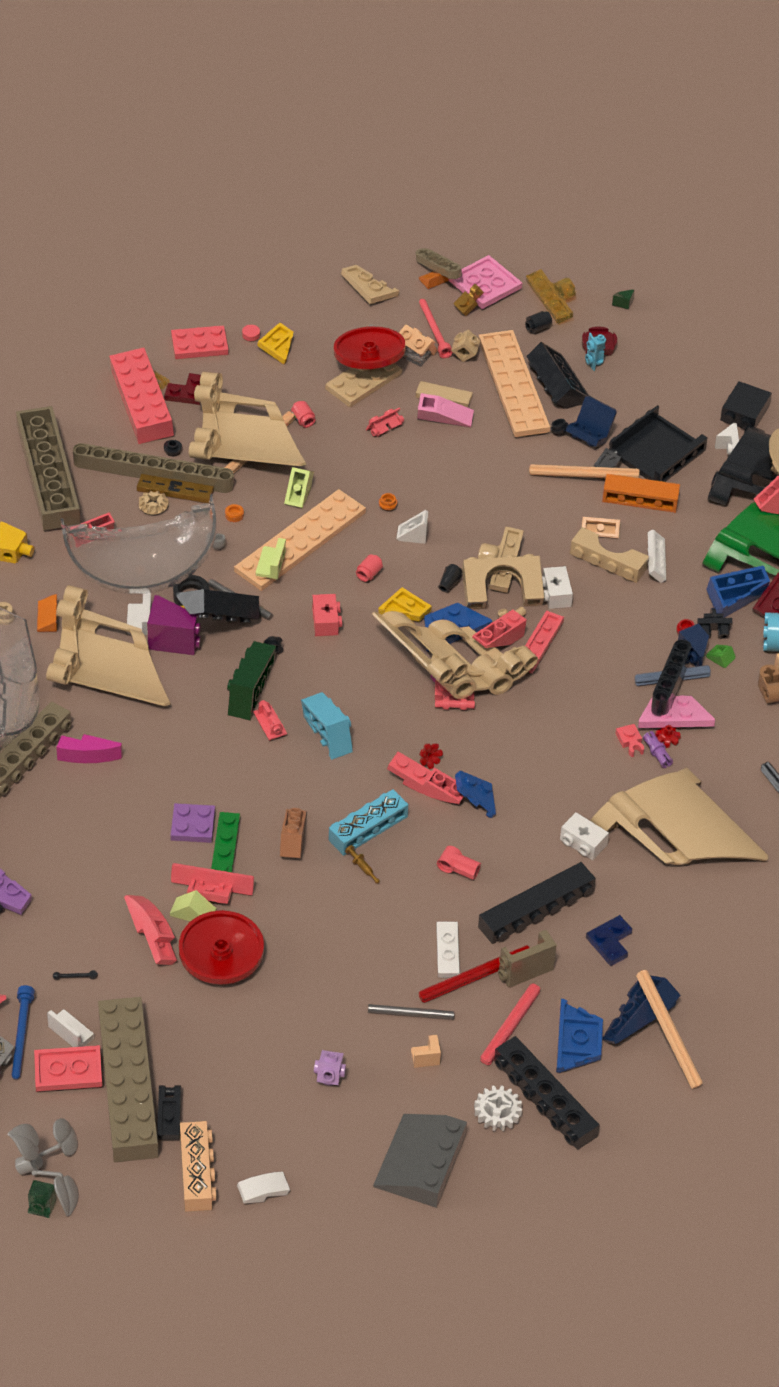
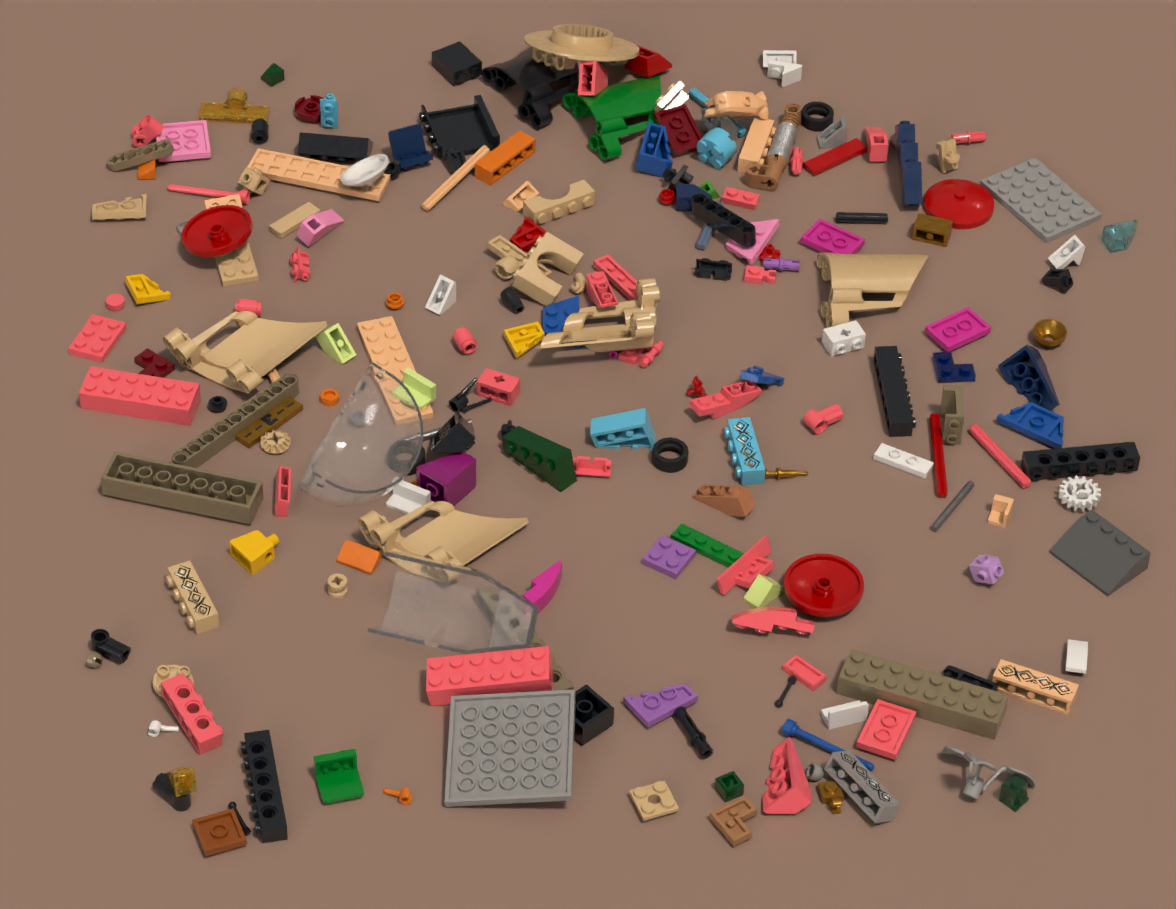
camera: 60 degrees left, 5 degrees down
(107, 980) = (804, 672): none -> coral tile
(287, 597) = (460, 401): none -> black plant
(327, 758) = (666, 464): none -> black tyre
(467, 302) = (199, 160): pearl gold plate -> none
(472, 254) = (146, 131): none -> coral piece
(526, 405) = (365, 171): none -> white dish
(550, 553) = (527, 235): none -> red wing
(557, 587) = (577, 240): white brick -> none
(604, 695) = (706, 266): none -> black hinge
(656, 555) = (573, 177): white plate -> none
(669, 1029) = (1068, 367): light nougat axle -> none
(670, 922) = (957, 329): none -> dark pink plate
(724, 774) = (832, 239): none -> dark pink plate
(724, 992) = (1049, 329): none -> pearl gold piece
(727, 438) = (490, 87): white slope -> none
(732, 683) = (740, 198): none -> coral plate

